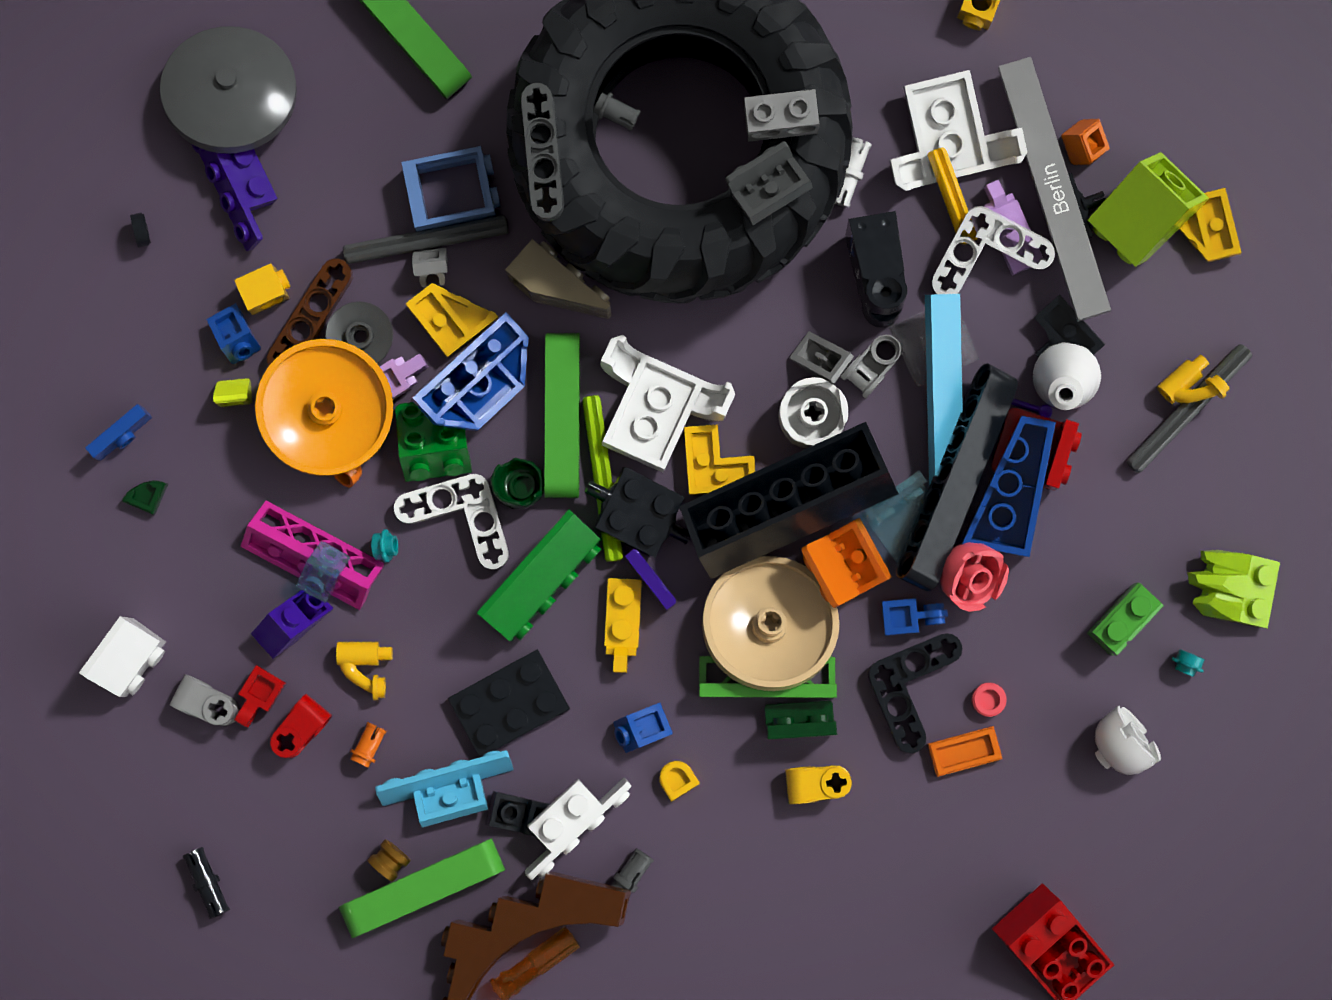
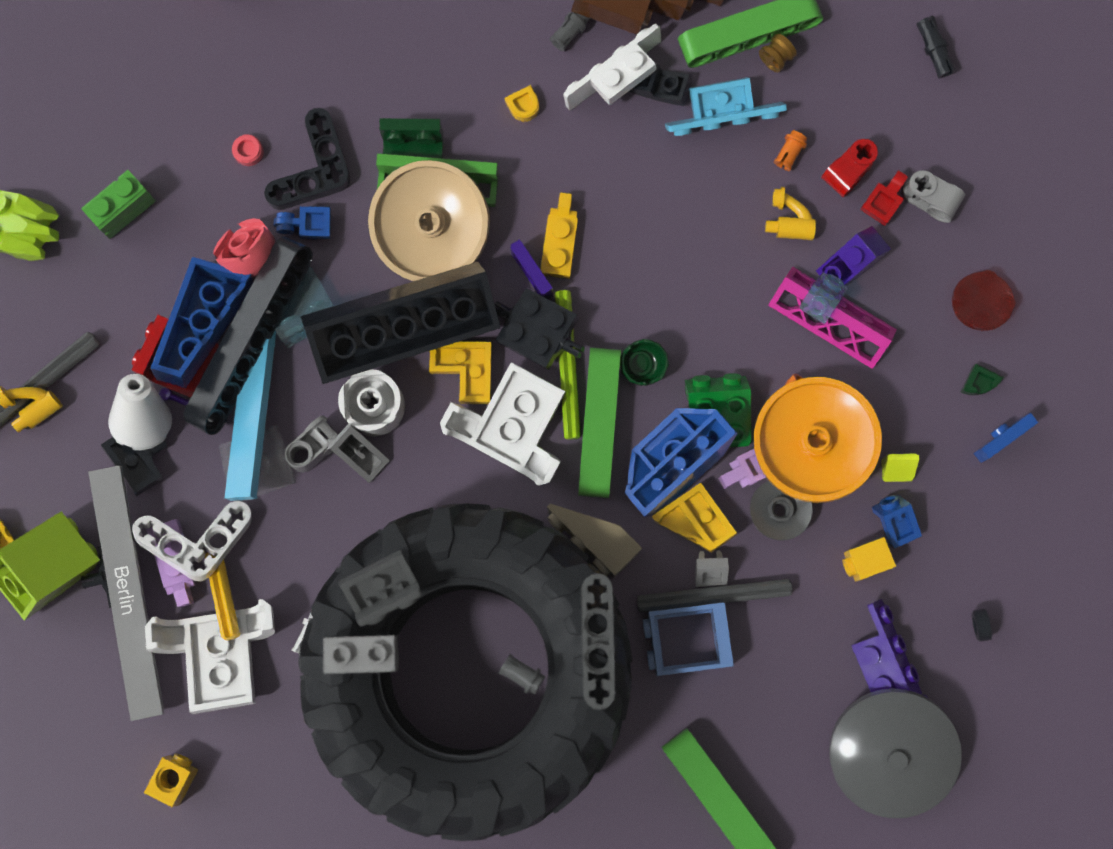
camera: 170 degrees left, 5 degrees down
(124, 657) = (1005, 235): white slope -> none
(146, 585) = (983, 301): none -> clear red dish
(305, 314) = (828, 534): reddish brown beam -> none
(384, 546) = (767, 318): teal plate -> none
(472, 508) = (687, 349): white beam -> none
(509, 703) = (665, 177): black plate -> none
(540, 576) = (631, 278): green slope -> none
(642, 728) = (550, 145): blue bracket -> none
(810, 785) = (405, 88): yellow piece -> none
(845, 563) = (357, 267): orange bracket -> none
(877, 266) = (295, 528): black piece -> none
(964, 751) = (273, 109): orange tile -> none
(1085, 141) = (93, 637): orange slope -> none
(1123, 743) = (134, 99): white cylinder -> none
(1188, 663) = (70, 166): teal plate -> none

